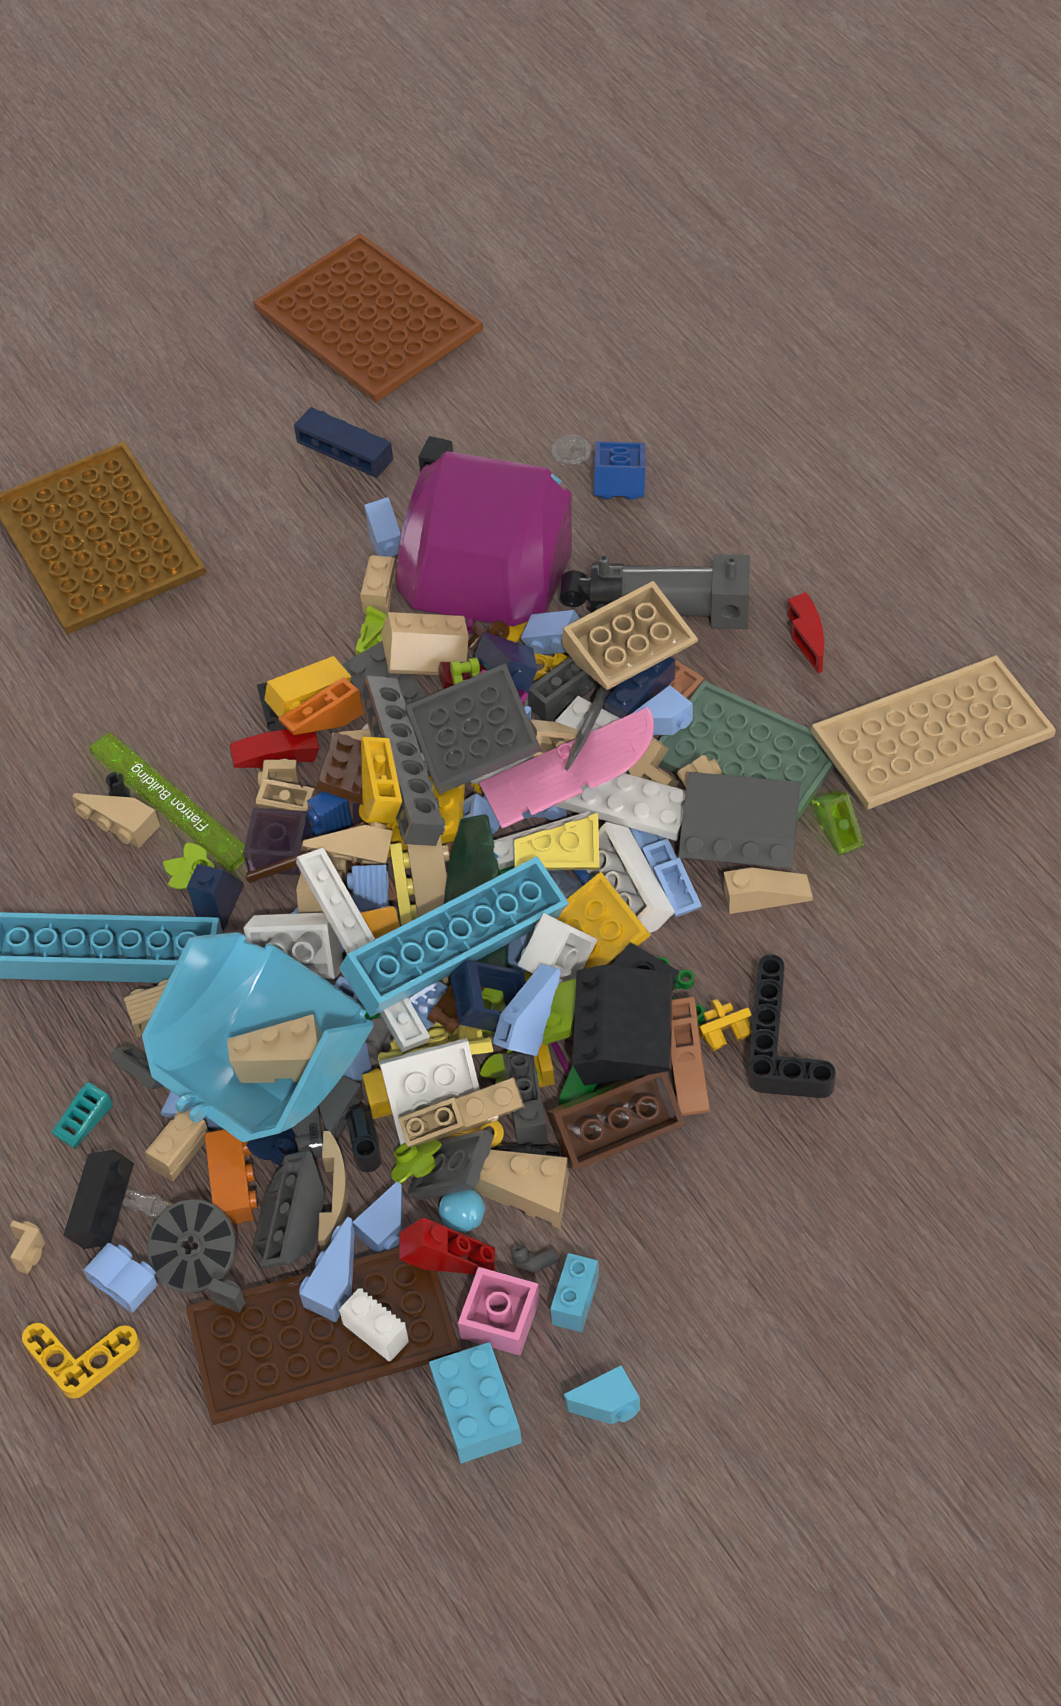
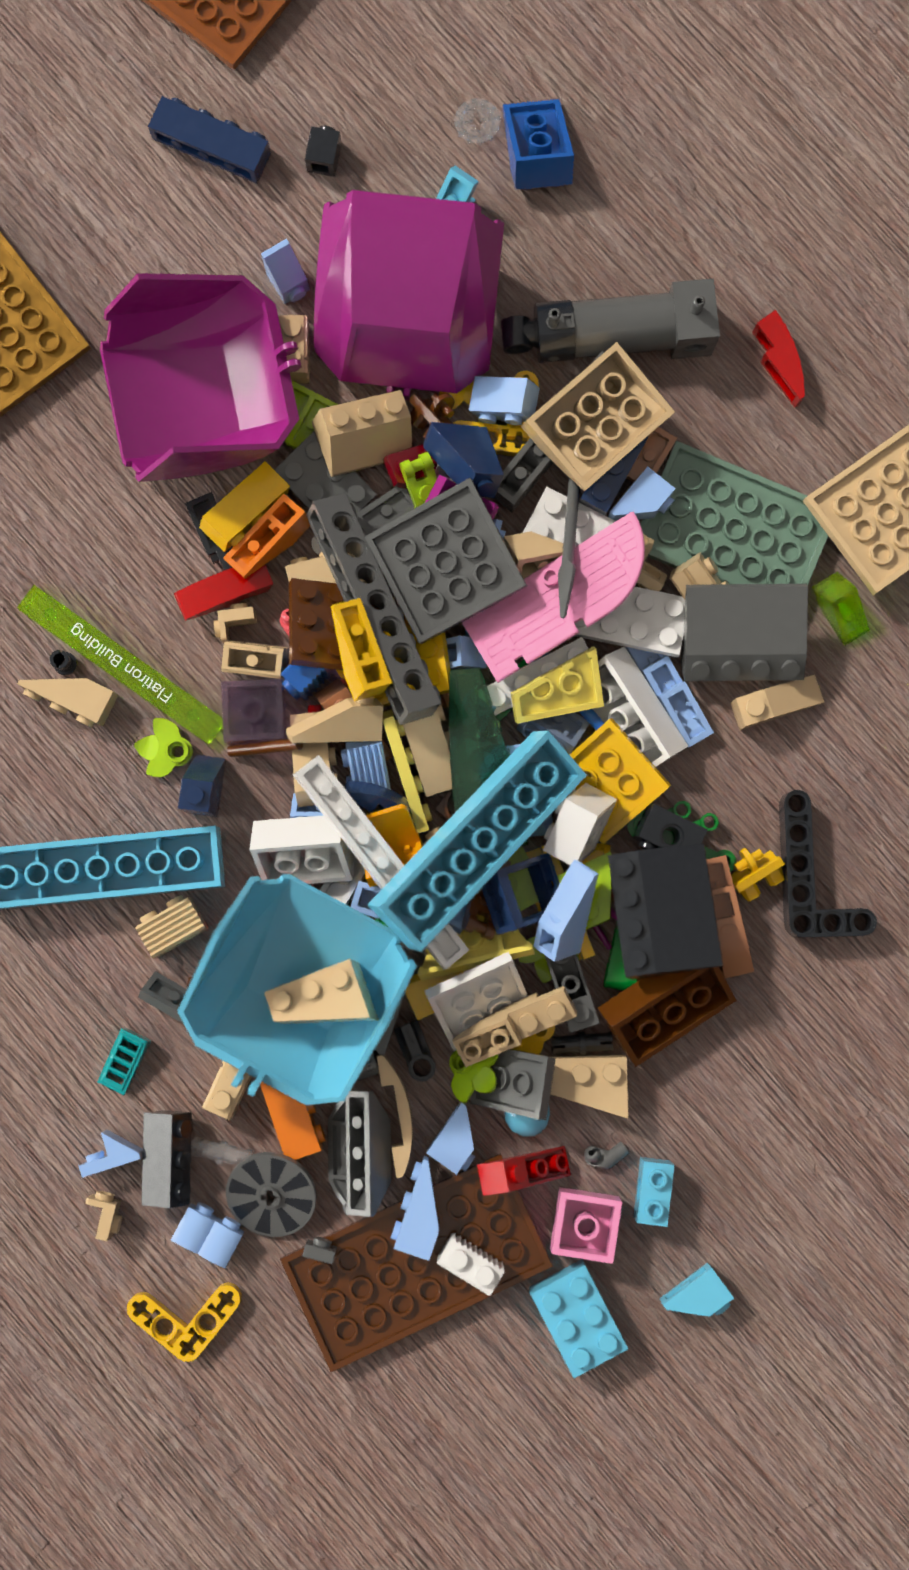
camera: 15 degrees left, 30 degrees up
(53, 1195) = (118, 1152): none -> light blue slope
(289, 580) = (196, 374): none -> magenta windscreen

